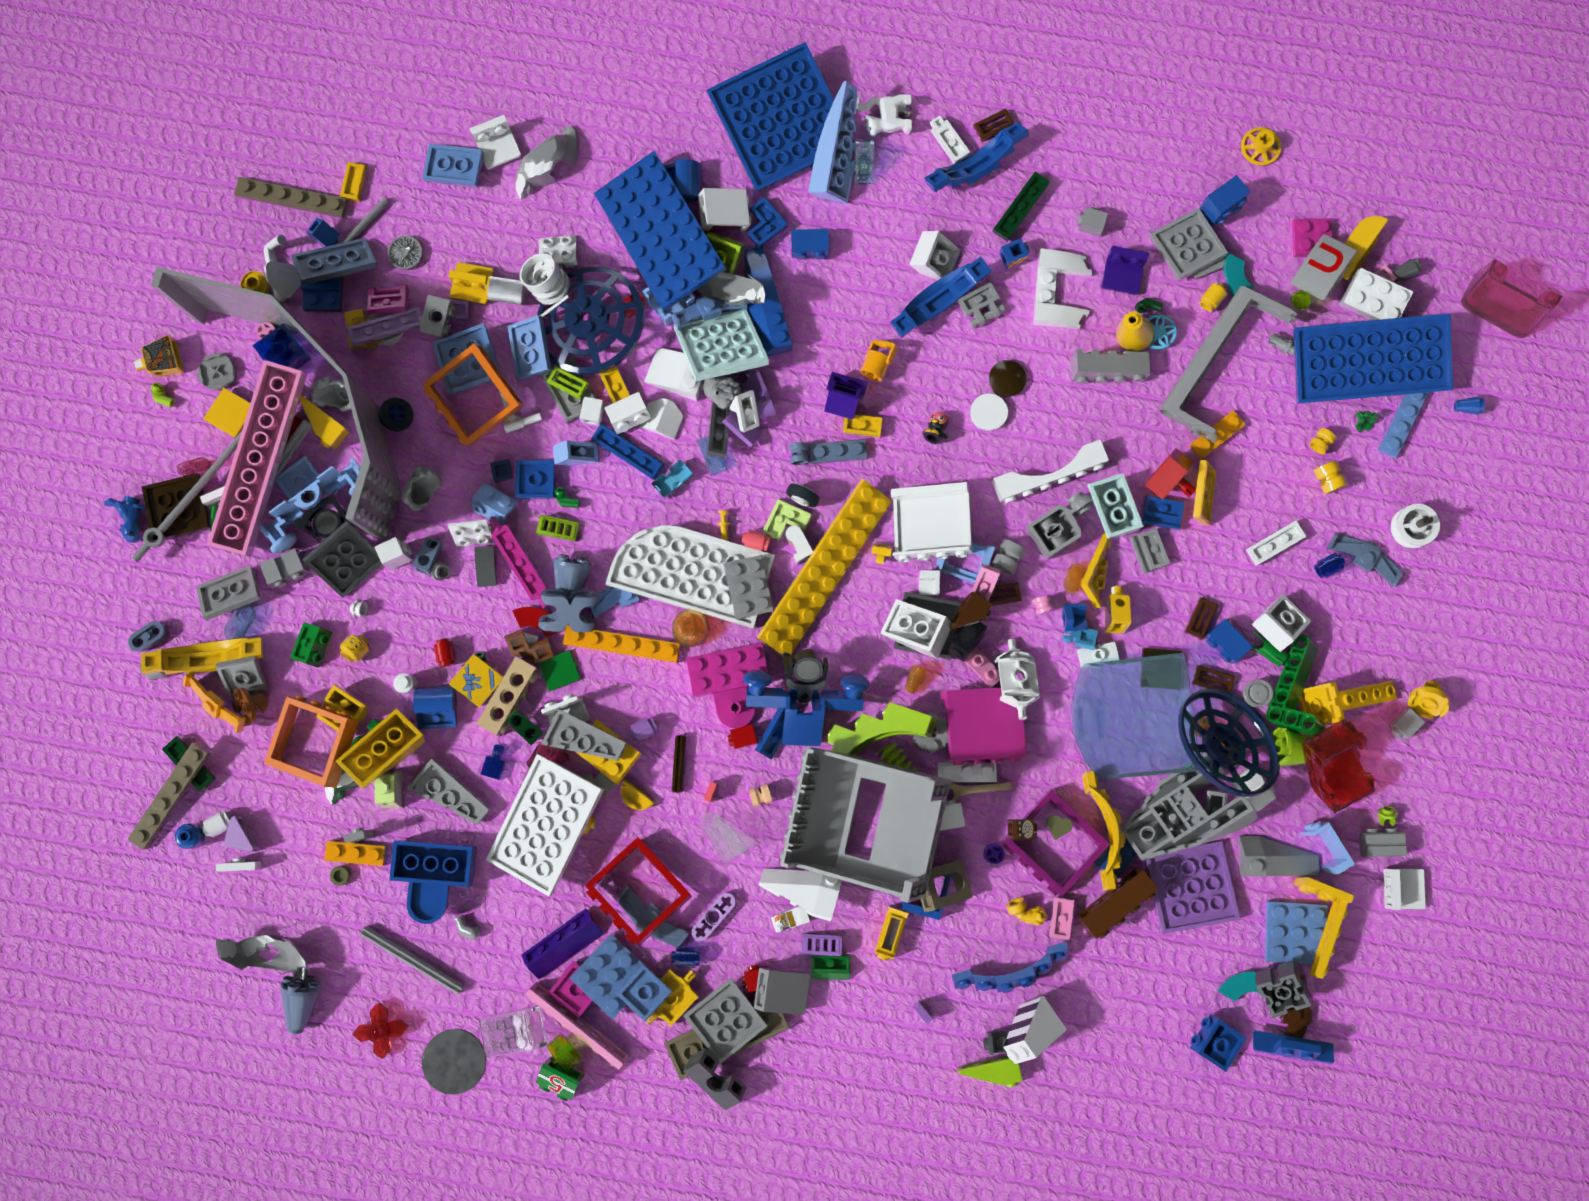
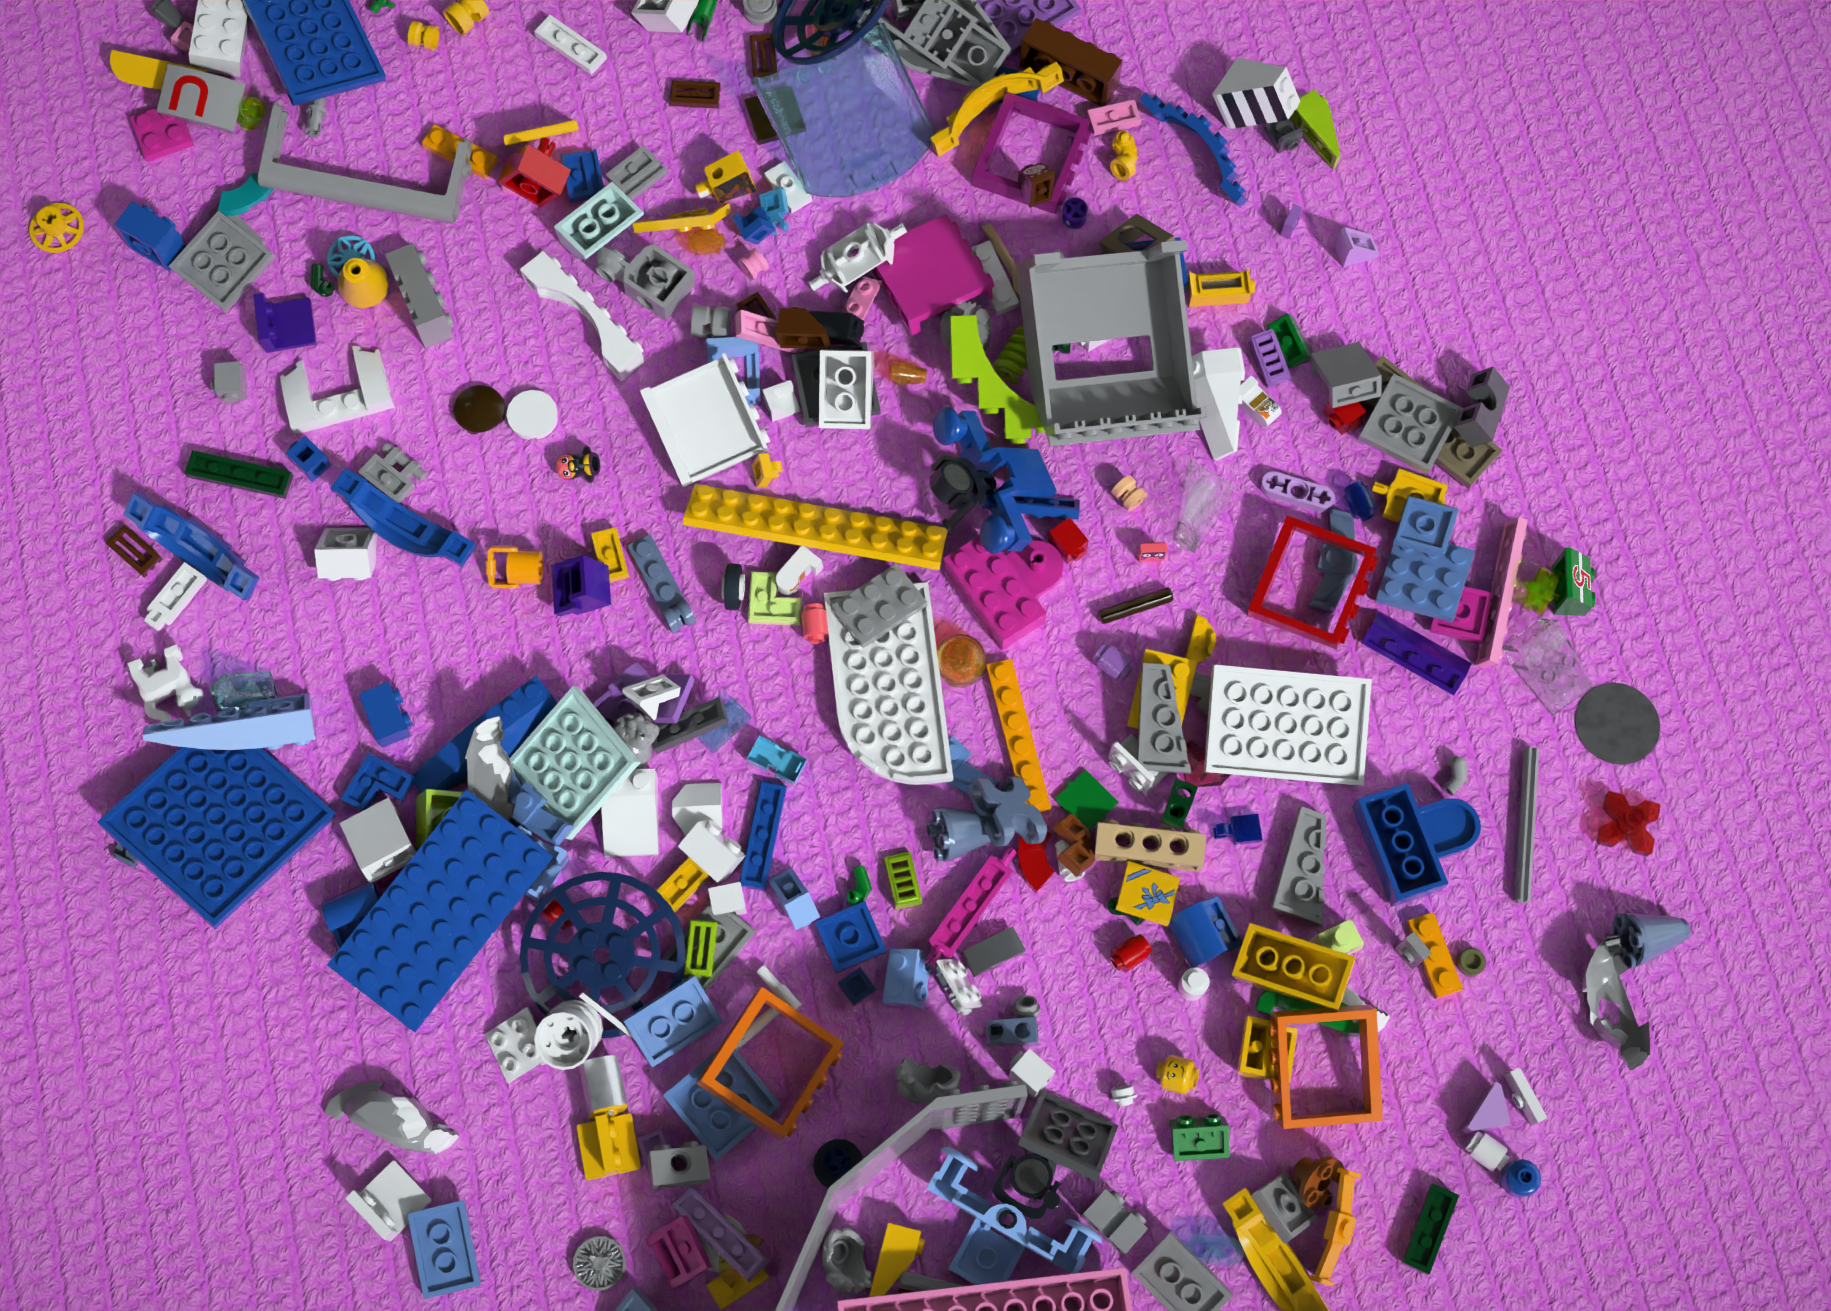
camera: 115 degrees left, 10 degrees down
(169, 795) = (1483, 1233): dark tan plate -> none
(724, 525) = (810, 673): yellow piece -> none
(883, 1052) = (1355, 247): none -> lavender slope
(1058, 826) = (1012, 149): olive tile -> none
(1213, 297) = (282, 211): yellow brick -> none
(1228, 641) = (712, 54): blue brick -> none

